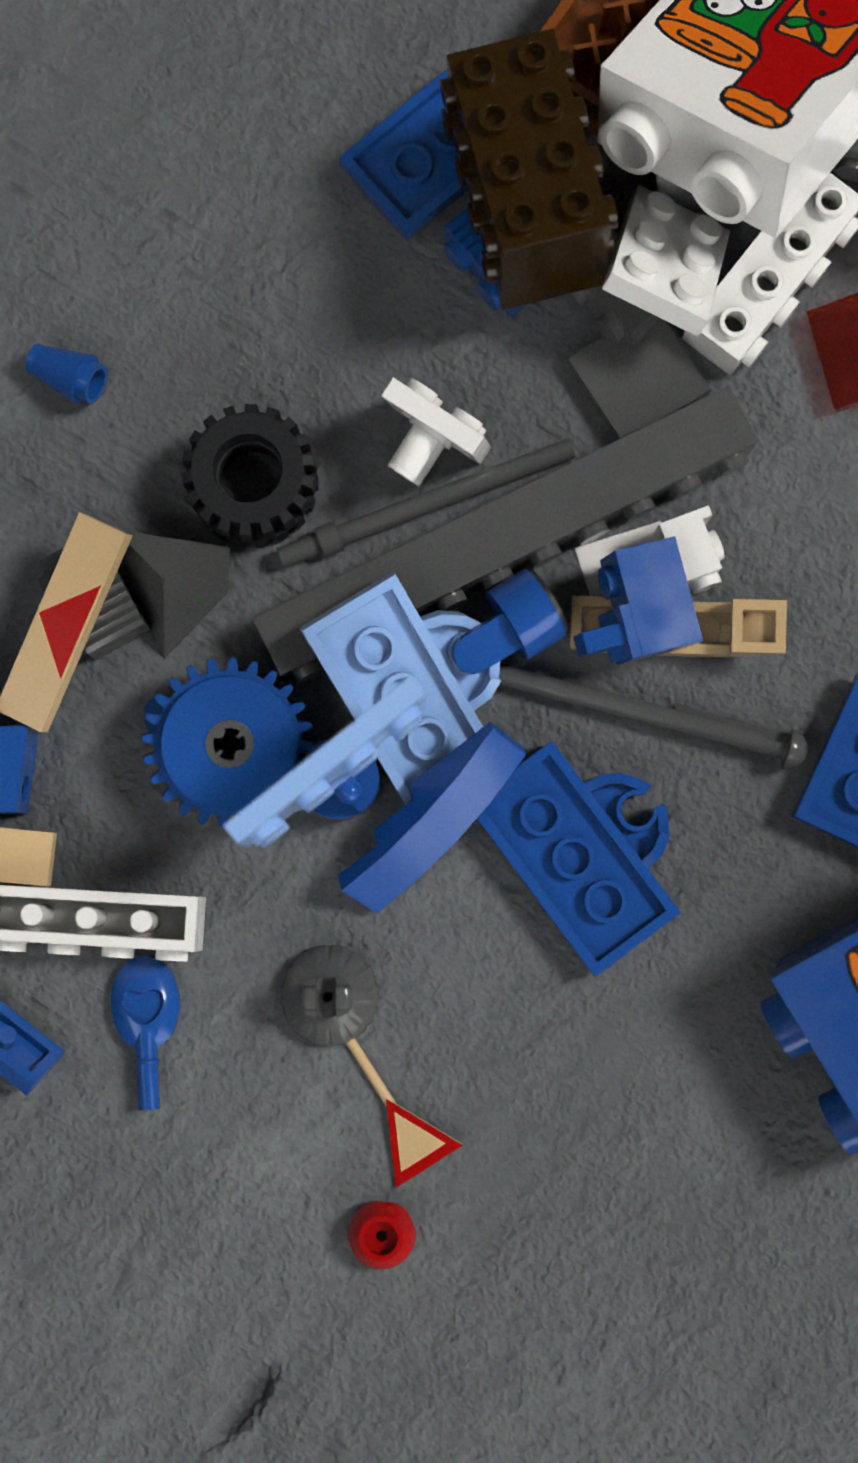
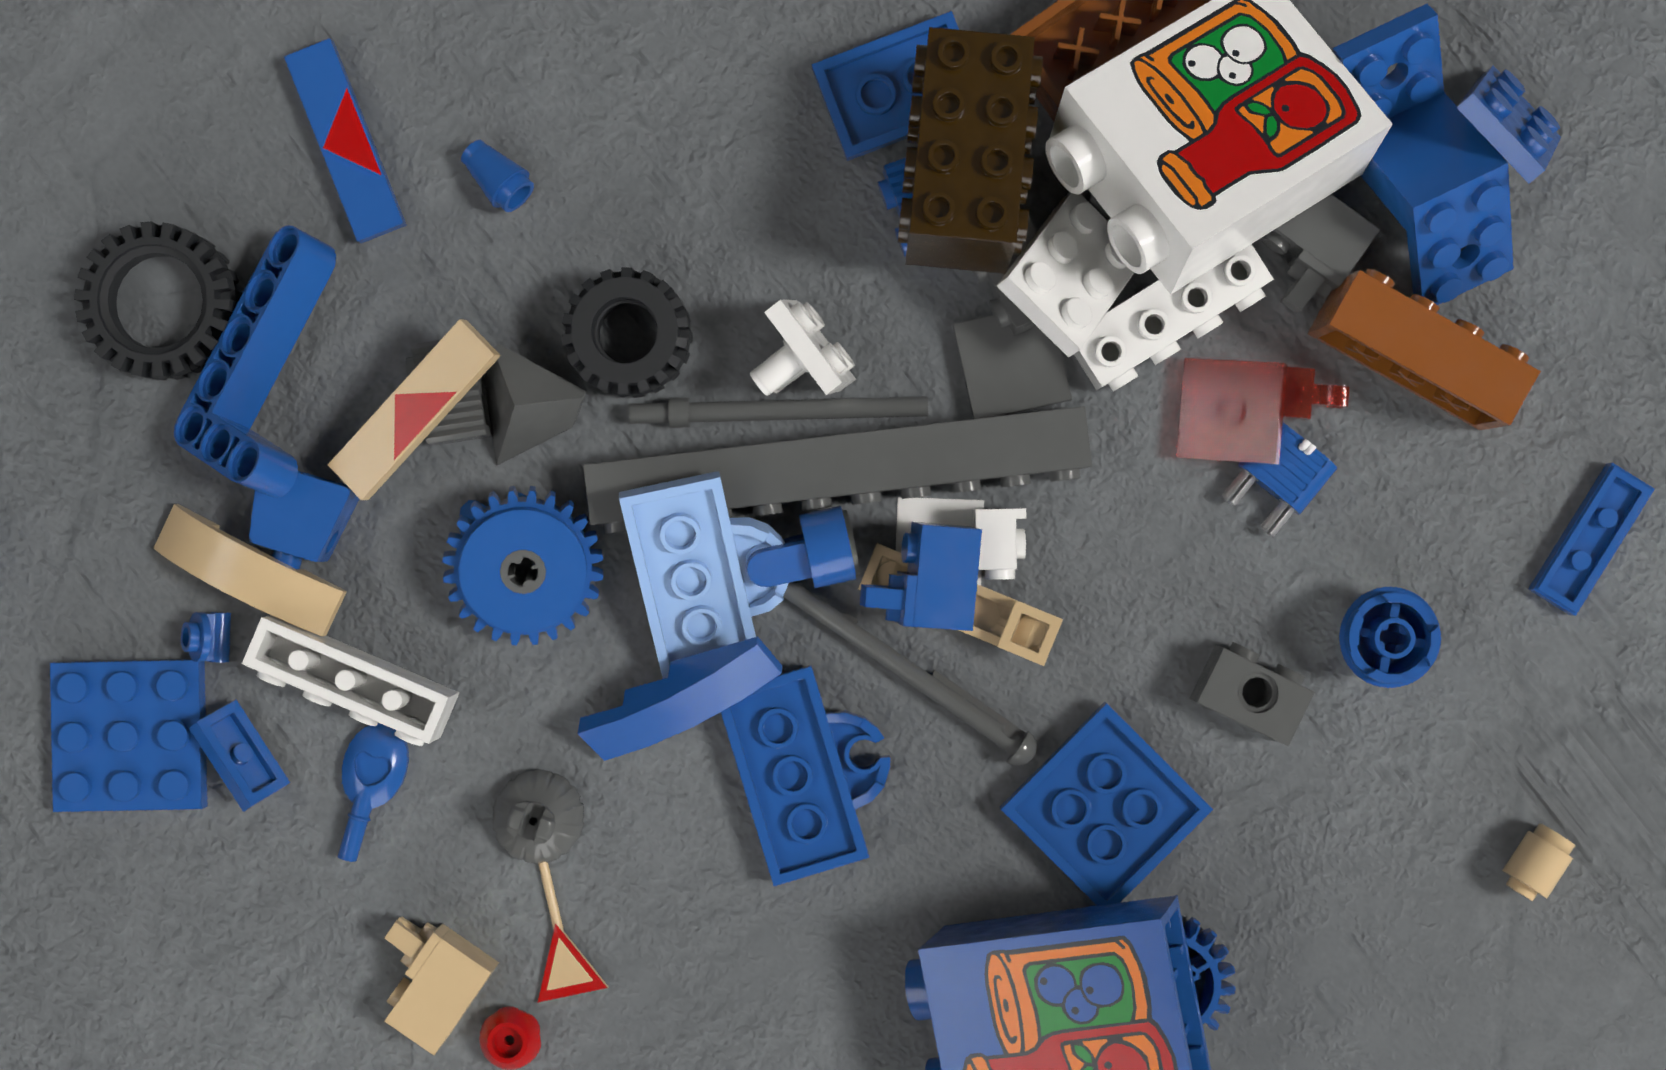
camera: 15 degrees right, 5 degrees up
(294, 1201) = (445, 981): none -> tan hinge
(336, 775) = (604, 635): light blue plate -> none

